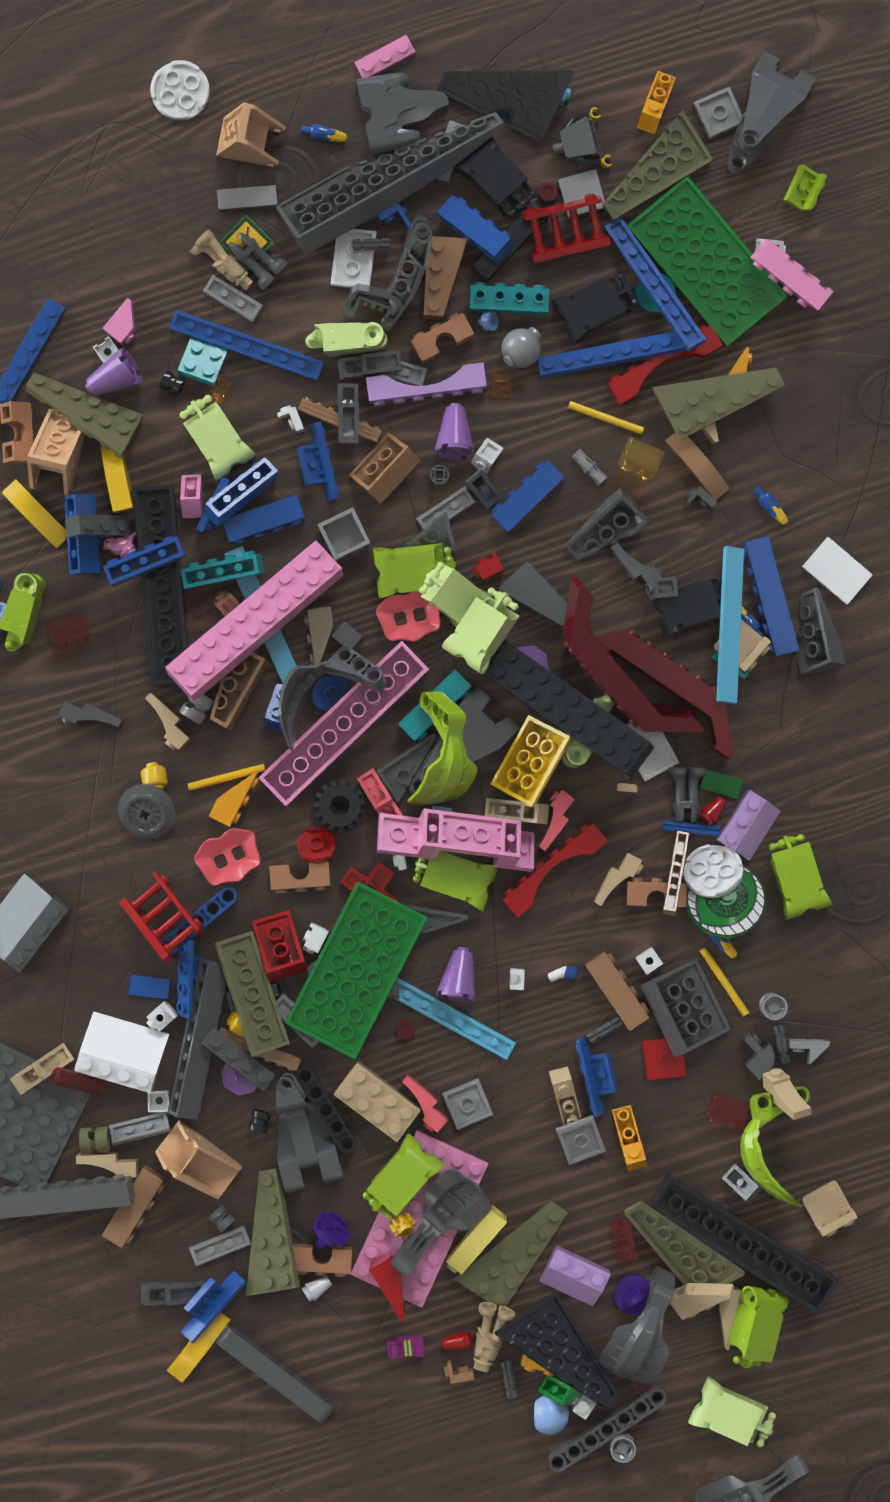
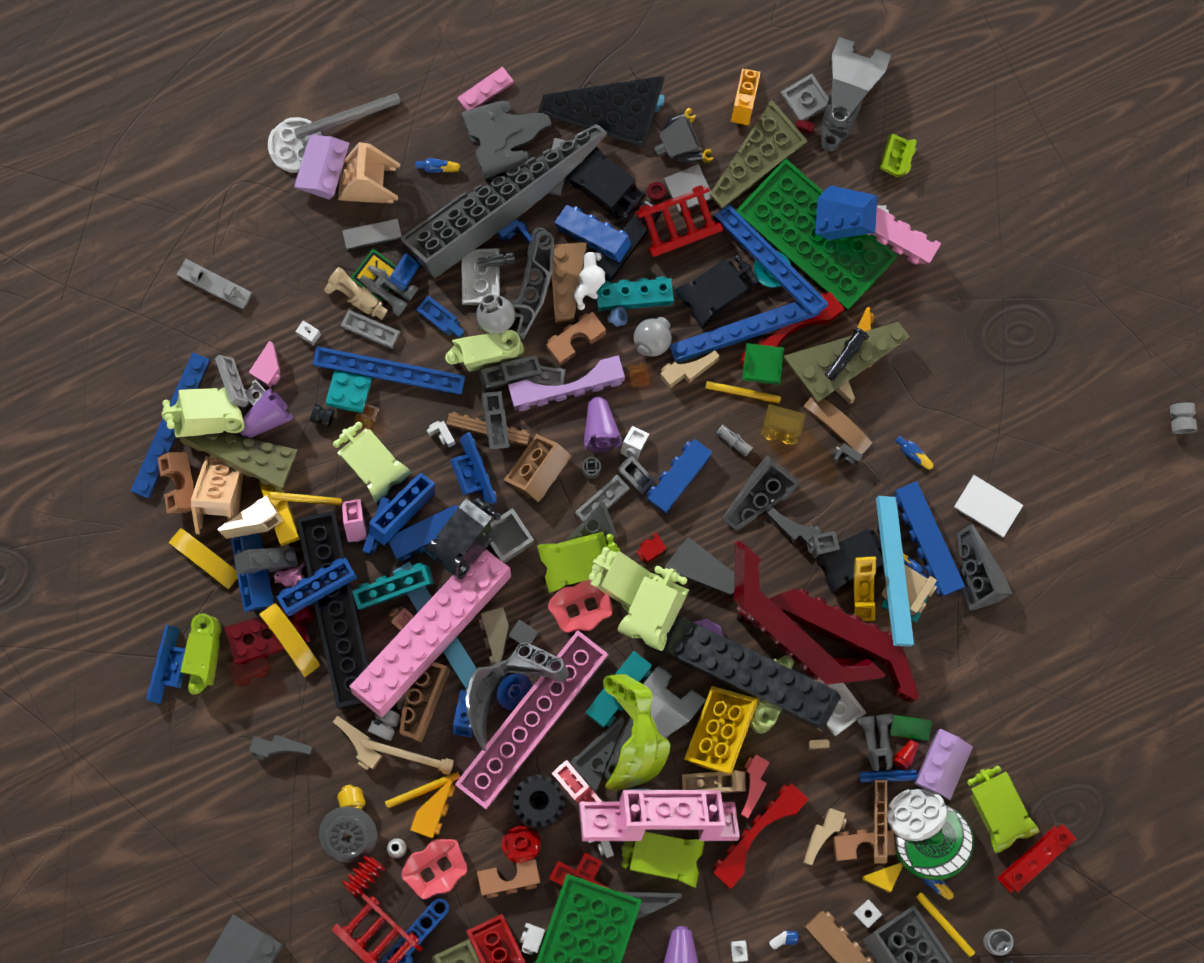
camera: 10 degrees left, 10 degrees down
(52, 364) = (202, 413): none -> yellowish green piece
(78, 229) = (214, 284): none -> light grey hinge
(84, 334) = (232, 381): none -> light grey tile
(88, 484) = (255, 519): none -> slope
(110, 601) = (263, 647): none -> dark red hinge
(112, 609) = (290, 639): none -> yellow slope
(143, 467) = (304, 498): none -> yellow bar
(156, 854) = (363, 875): none -> red piece
(170, 299) = (302, 332): none -> white piece
(198, 831) = (402, 848): none -> white cone
(203, 117) = (321, 165): none -> lavender slope
(237, 66) = (347, 116): none -> light grey axle
(250, 756) = (442, 765): none -> tan piece
(275, 243) = (404, 271): none -> blue tile
(299, 531) = (464, 537): none -> black piece
(306, 296) = (440, 317): none -> blue hinge
(361, 304) = (495, 314): none -> light grey brick
(464, 279) = (589, 280): none -> white piece
(538, 388) = (676, 372): none -> tan slope
(630, 392) = (763, 364): none -> green piece
(672, 927) = (884, 878): none -> yellow slope
(697, 638) = (864, 588): none -> yellow slope
(712, 143) = (805, 126): none -> dark red tile
(722, 388) = (850, 348): none -> black pin
(739, 244) = (845, 213): none -> blue wedge
(824, 931) = (1036, 858): none -> red fence

